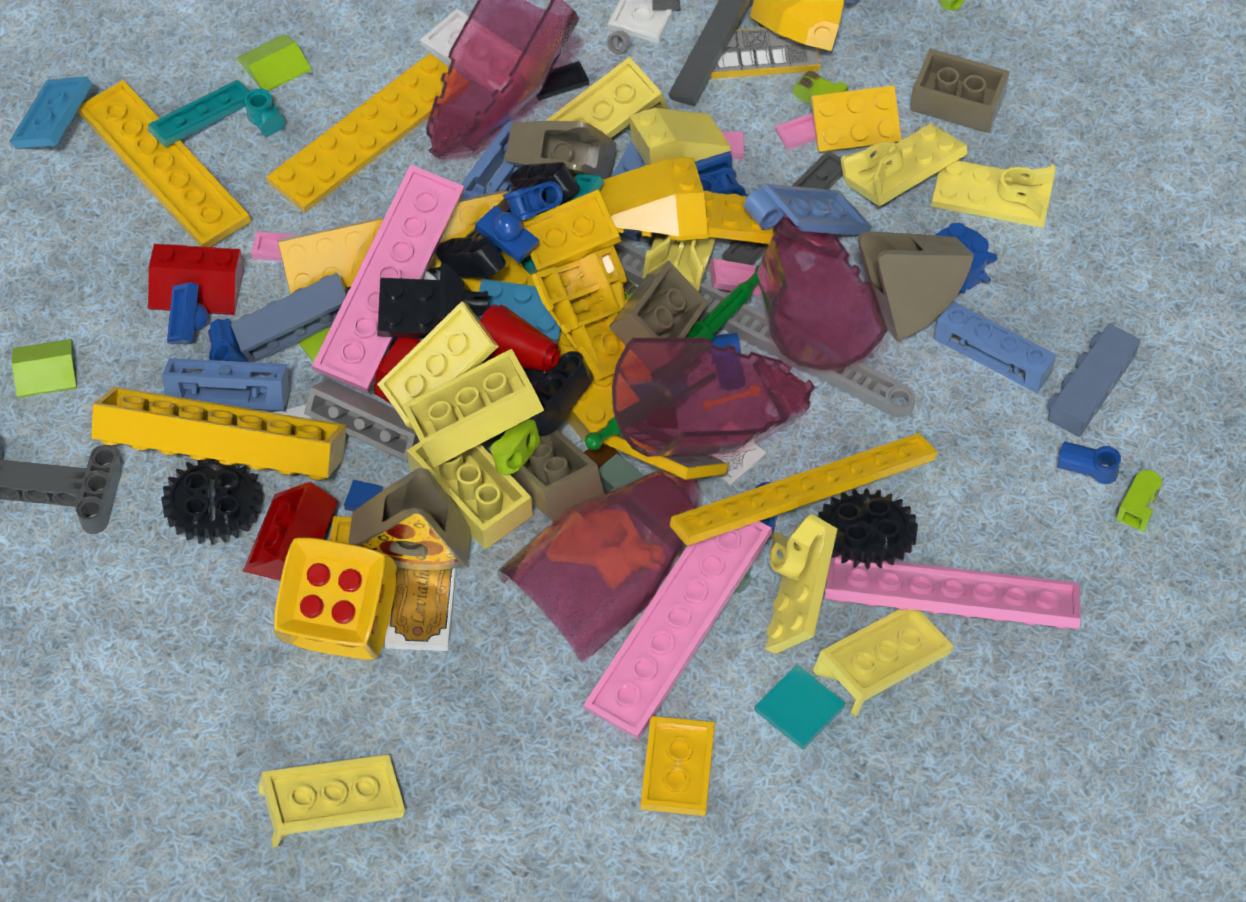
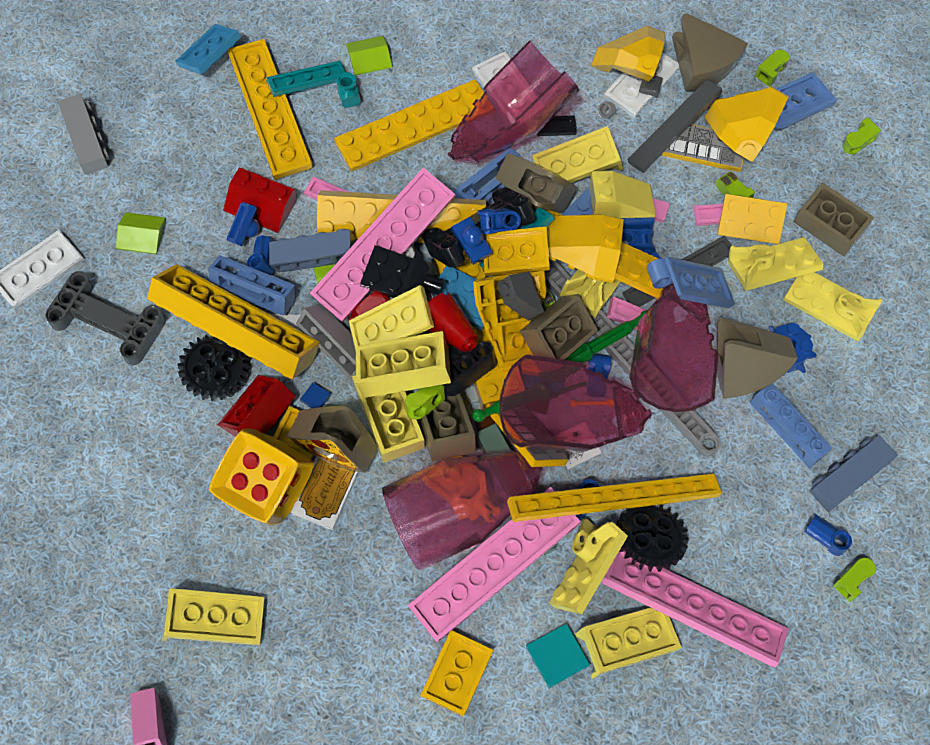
camera: 15 degrees right, 10 degrees up
(596, 281) = (520, 295): none -> dark grey slope

